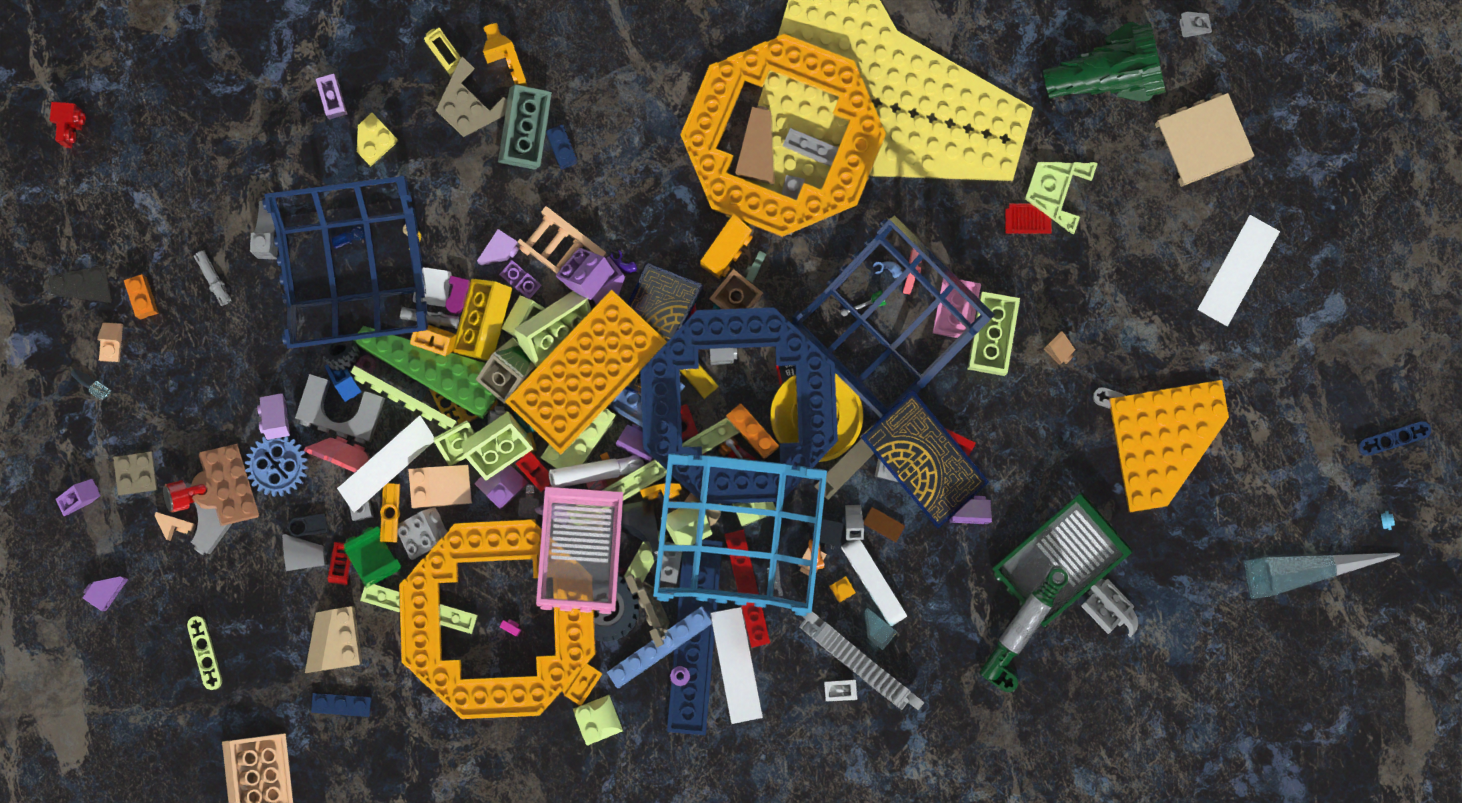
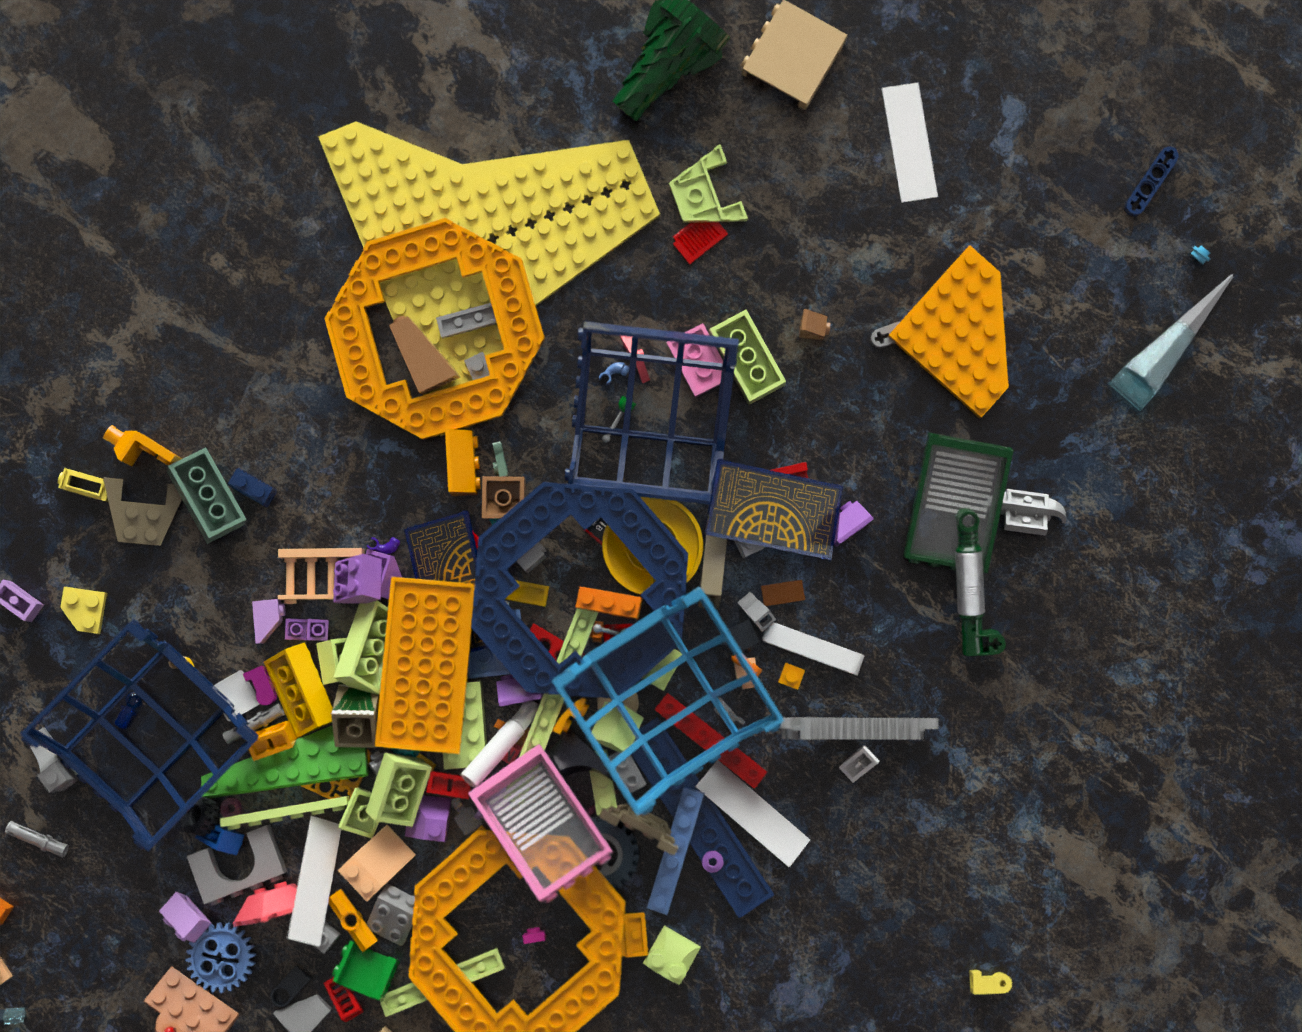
camera: 30 degrees left, 0 degrees up
(877, 630) = (849, 687): clear light blue slope -> none

